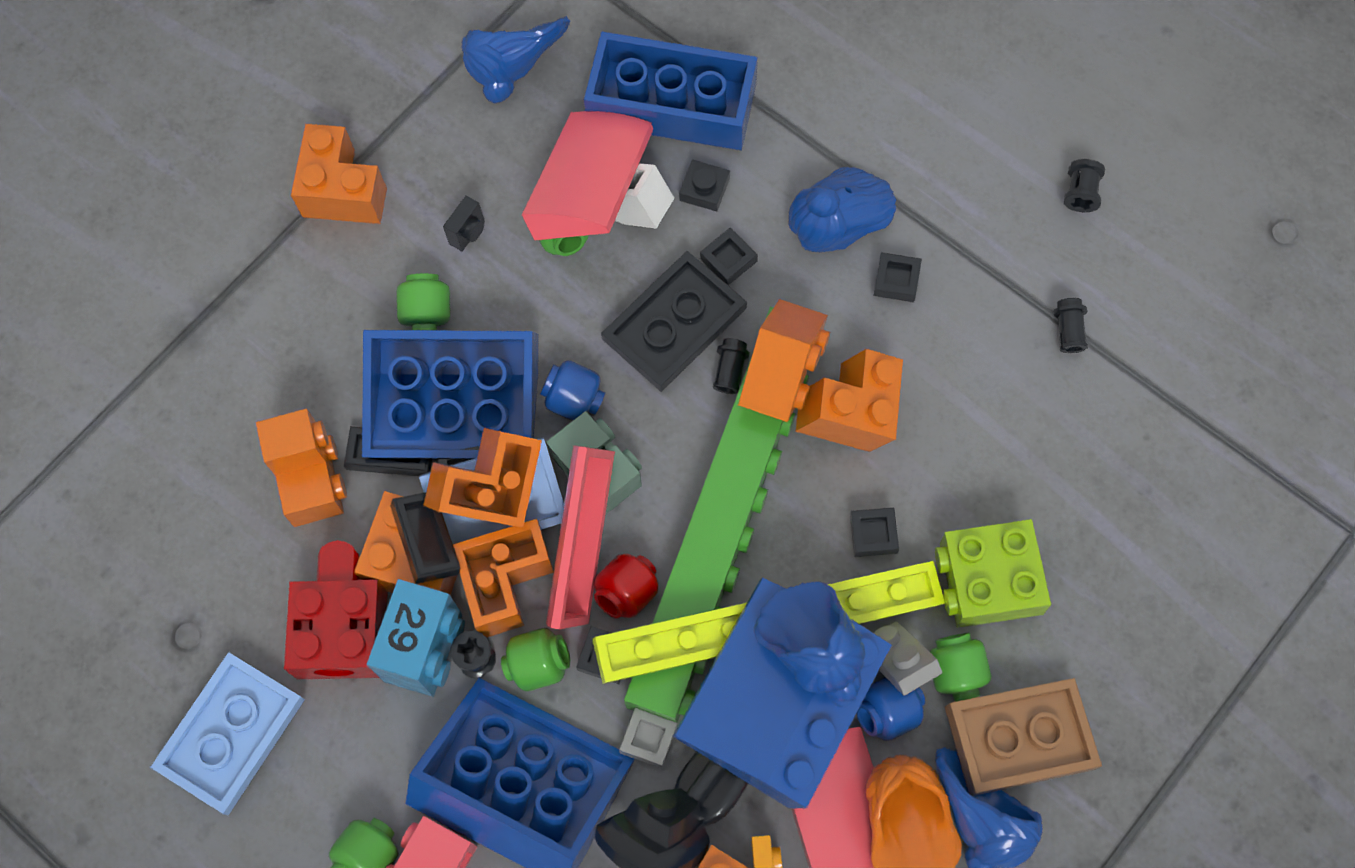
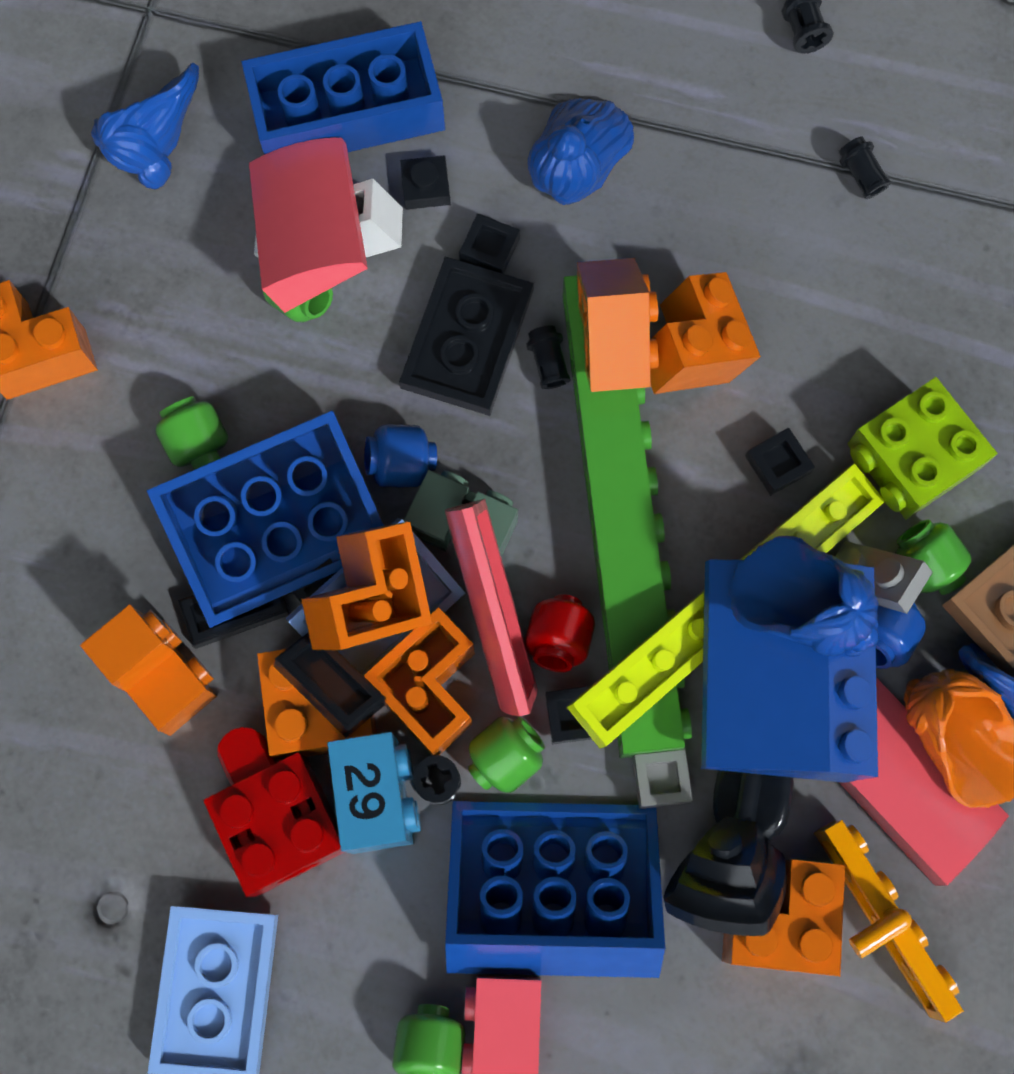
camera: 30 degrees left, 5 degrees up
(464, 224) = (193, 330): black plate -> none
(897, 277) = (671, 192): black plate -> none

